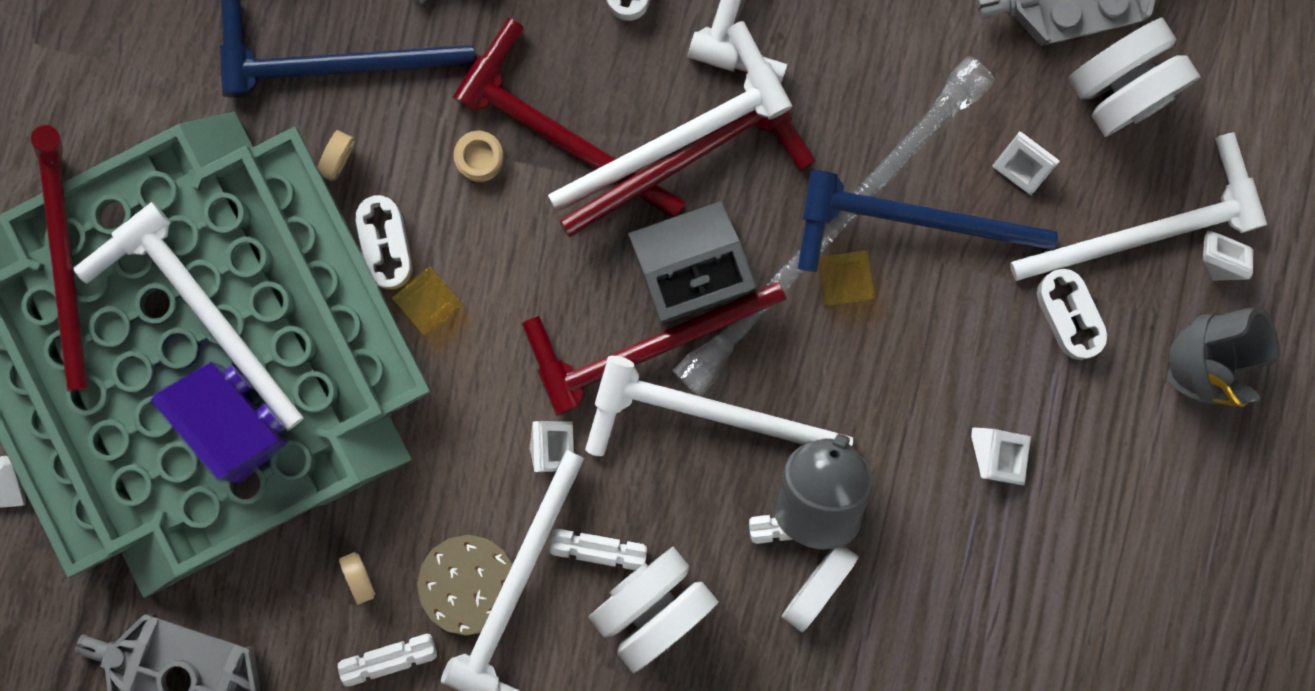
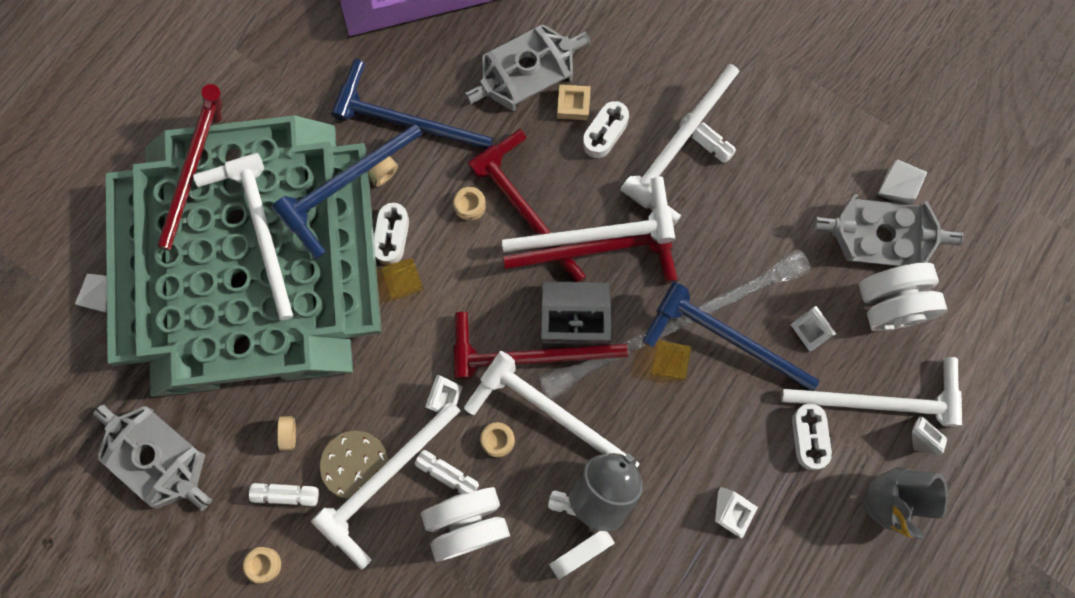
camera: 20 degrees right, 10 degrees down
(221, 421) = (238, 296): dark purple slope -> none
(243, 270) = (294, 212): none -> dark blue bar
(648, 477) = (497, 440): none -> tan tile

